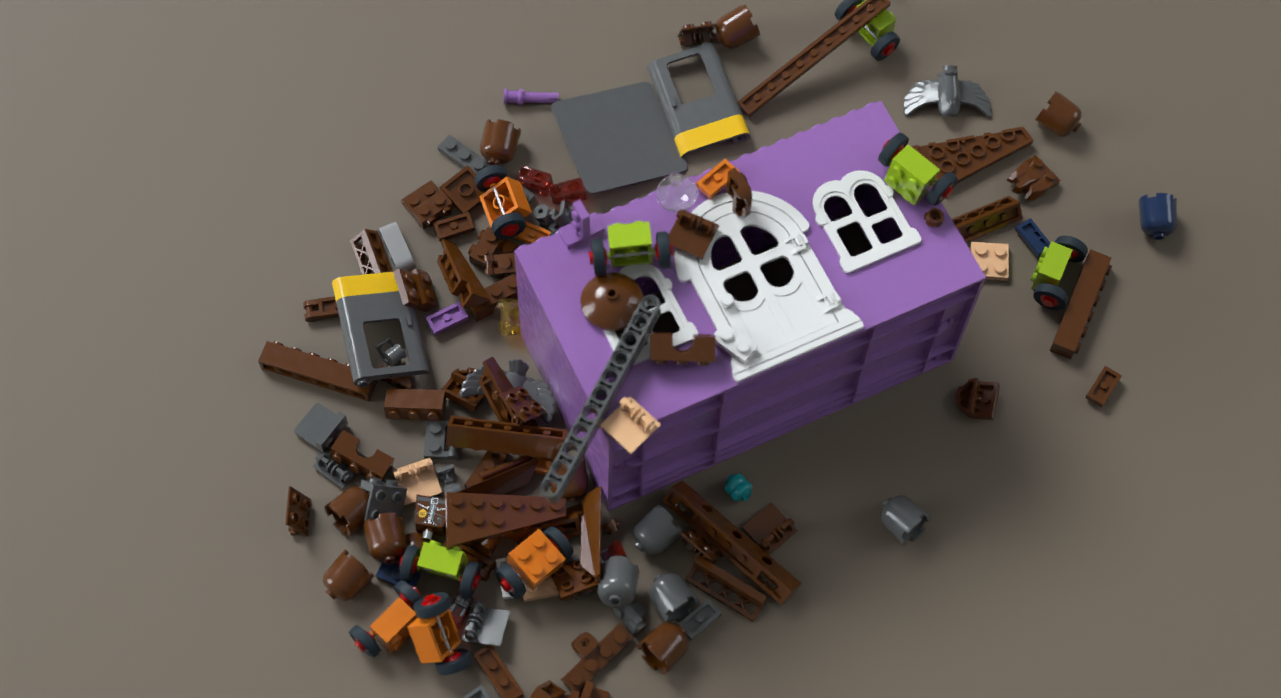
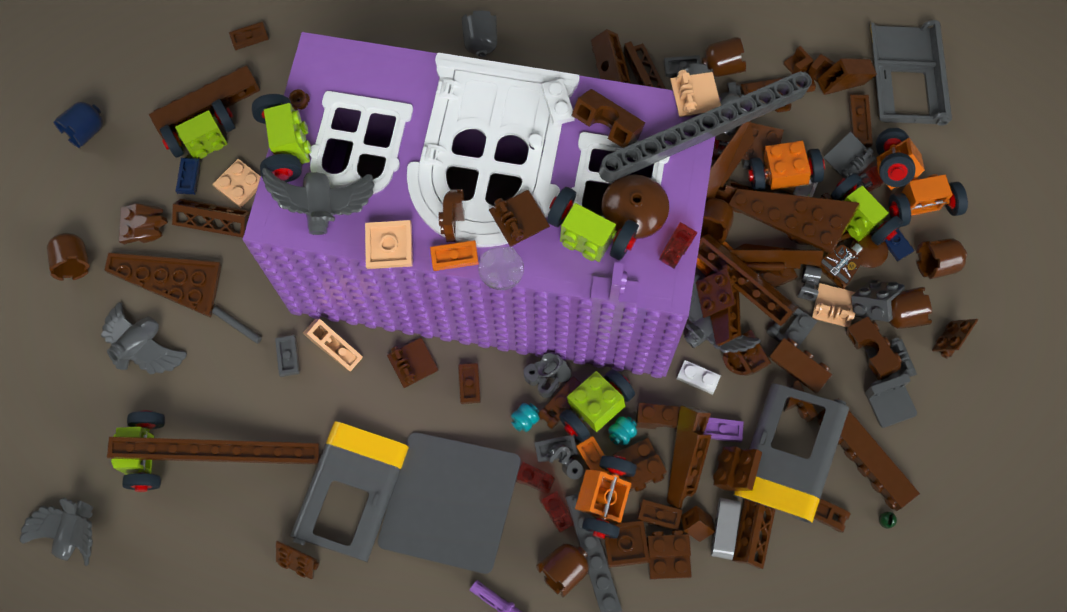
camera: 140 degrees left, 5 degrees up
(276, 333) = (884, 517): none -> dark green hinge
(385, 537) = (893, 263): reddish brown cylinder -> none
(391, 355) = (793, 416): dark grey leg -> none
(420, 238) = (697, 523): none -> reddish brown panel
(495, 348) = (698, 377): none -> white plate
(506, 264) = (638, 433): reddish brown plate -> none
(509, 317) = (668, 388): clear yellow leg -> none
(557, 289) = (678, 245): none -> clear red leg
(736, 28) = (257, 536): reddish brown cylinder -> none
(771, 155) = (388, 244): none -> light nougat plate
(848, 147) = (318, 199): none -> dark grey animal

